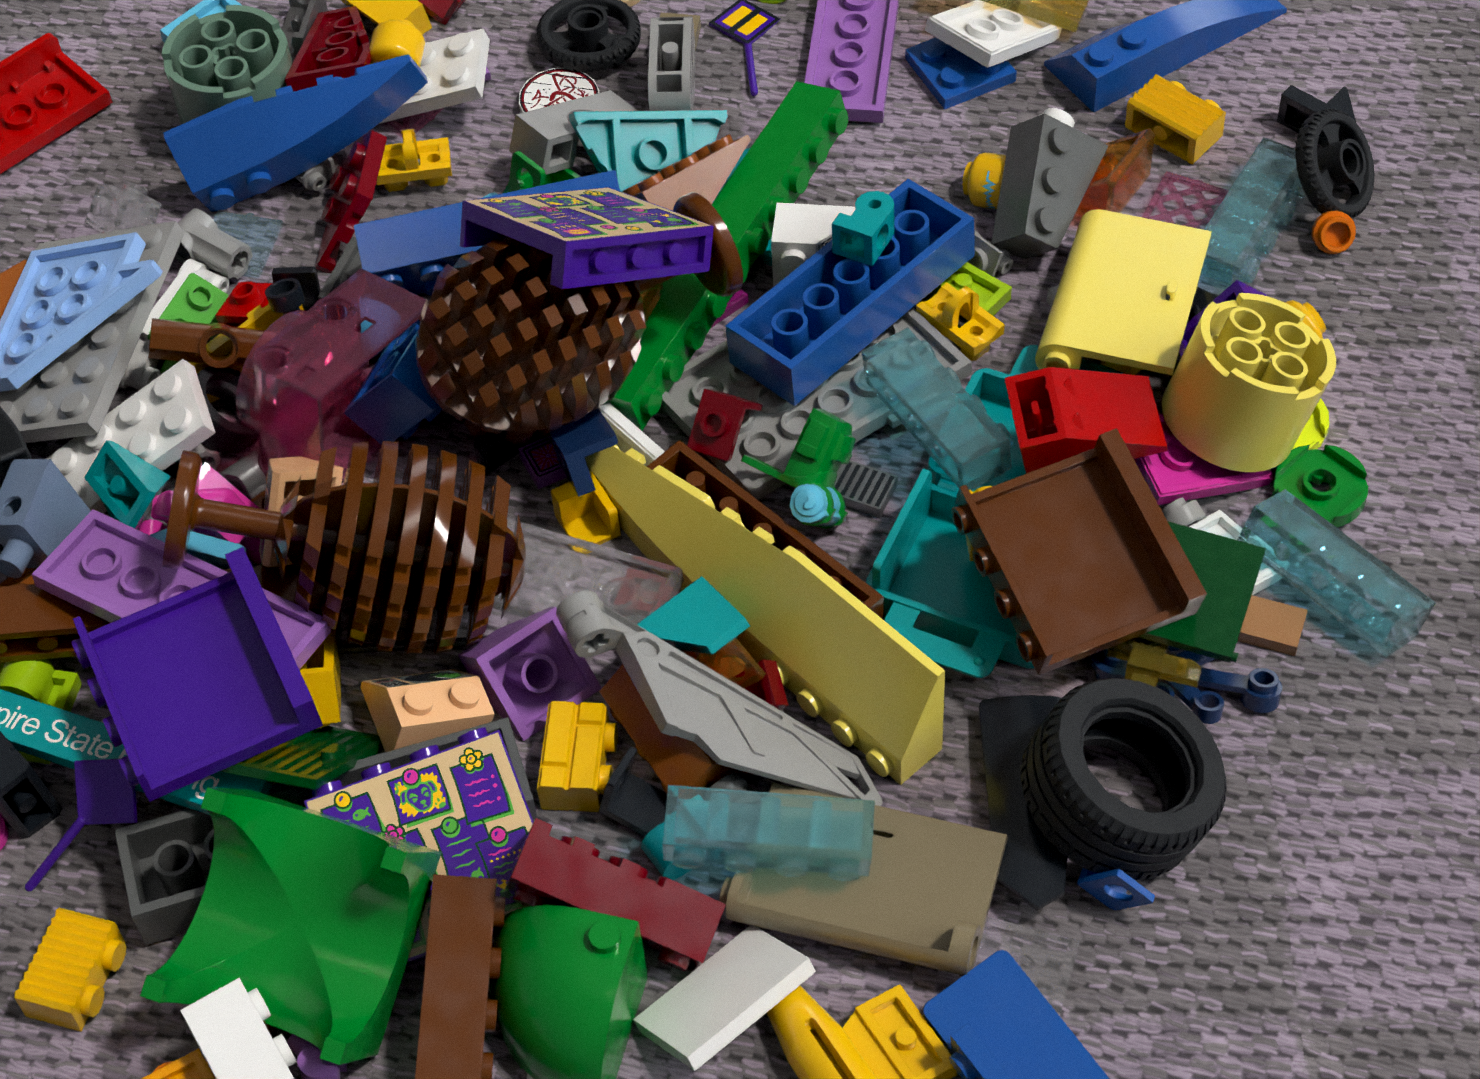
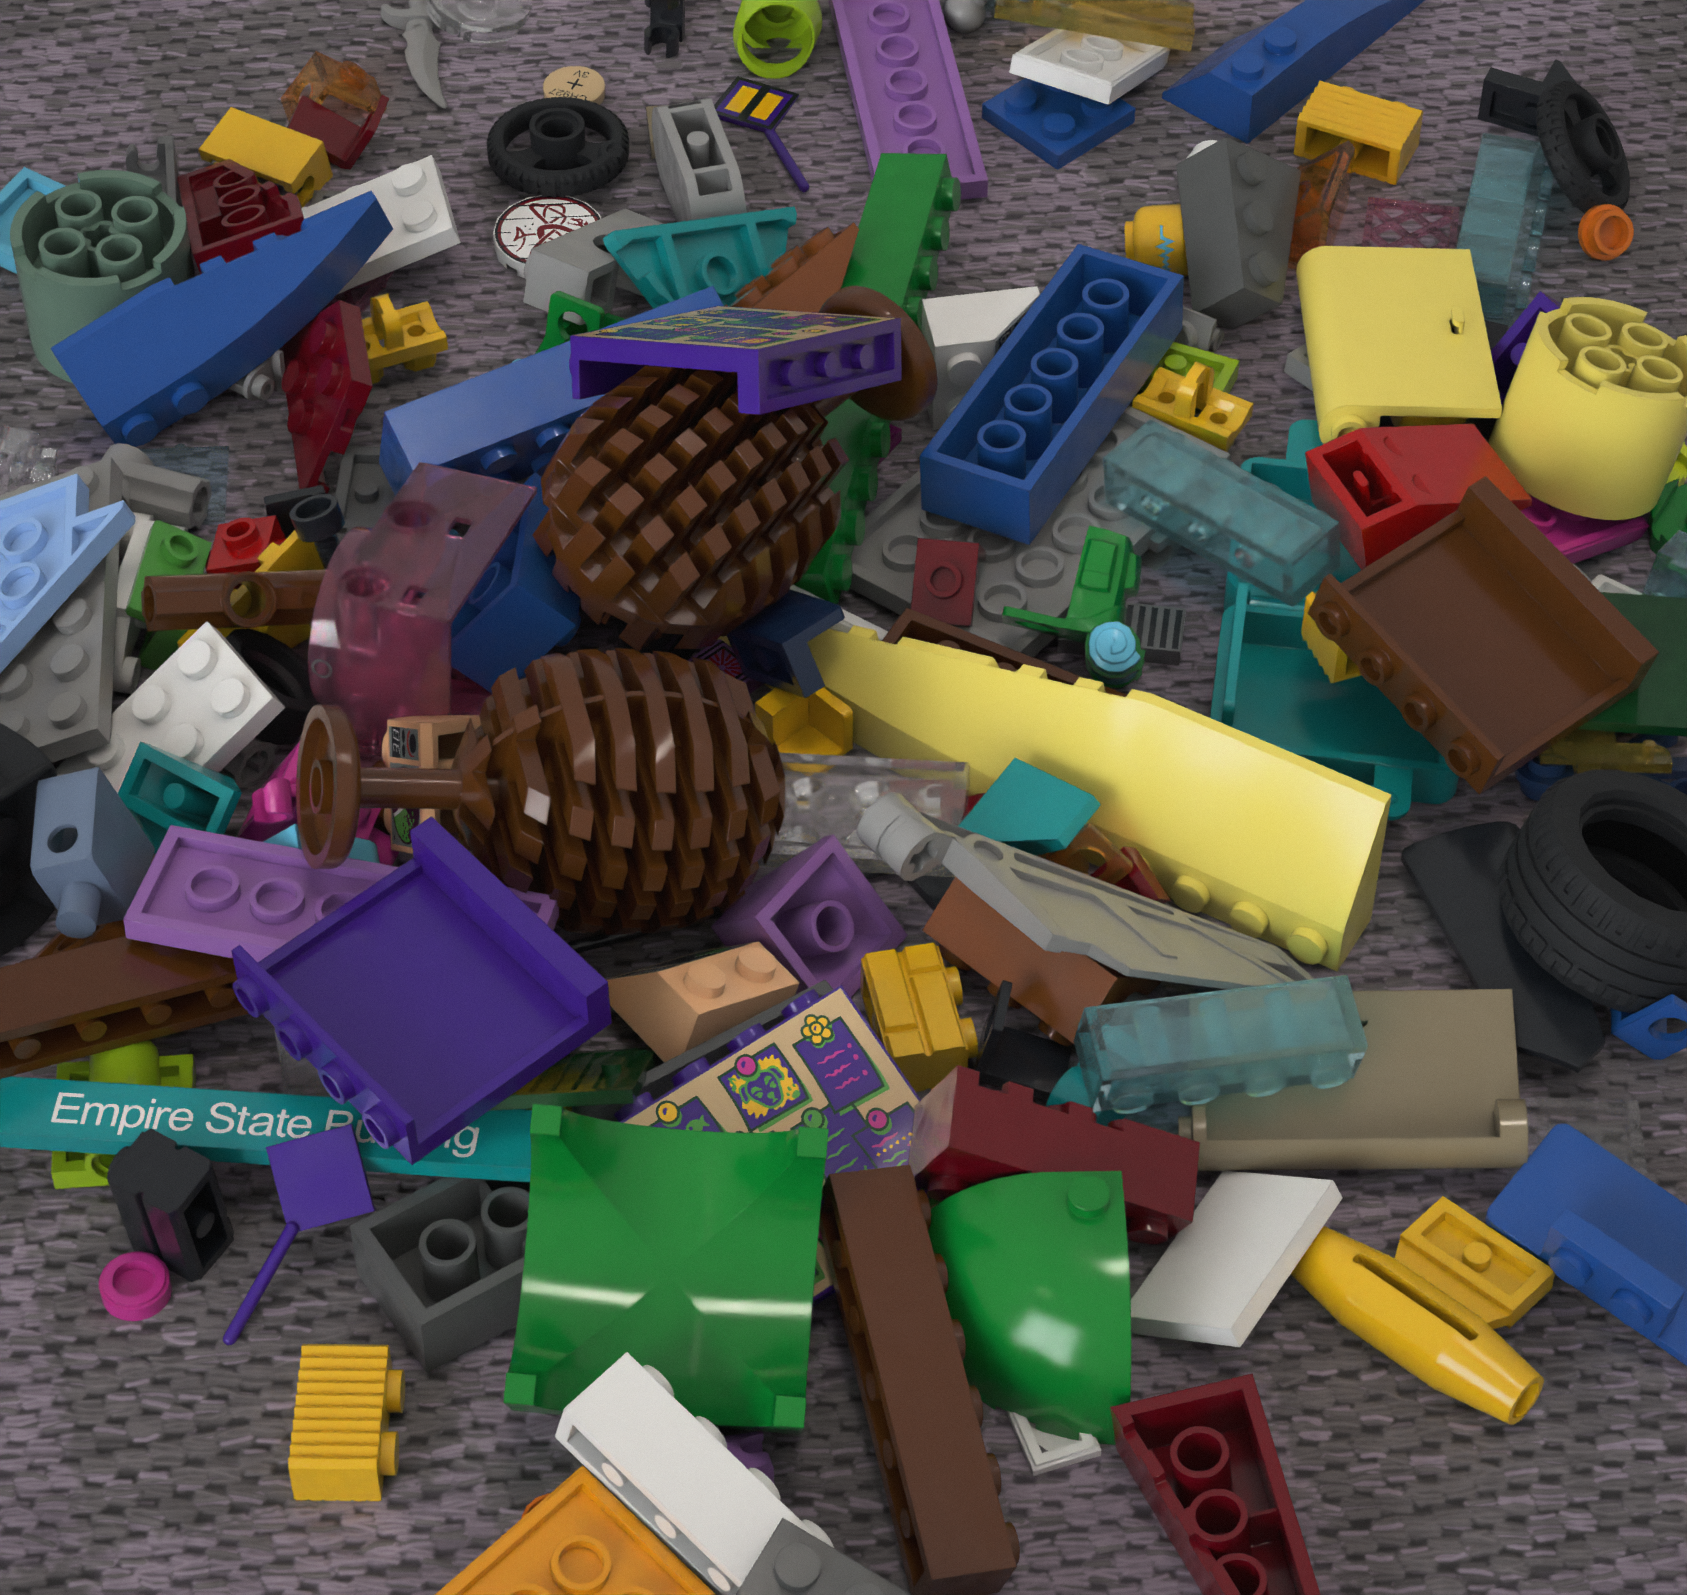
camera: 20 degrees left, 5 degrees down
(396, 39) = (325, 183): yellow head -> none
(866, 230) = (1060, 309): teal leg -> none

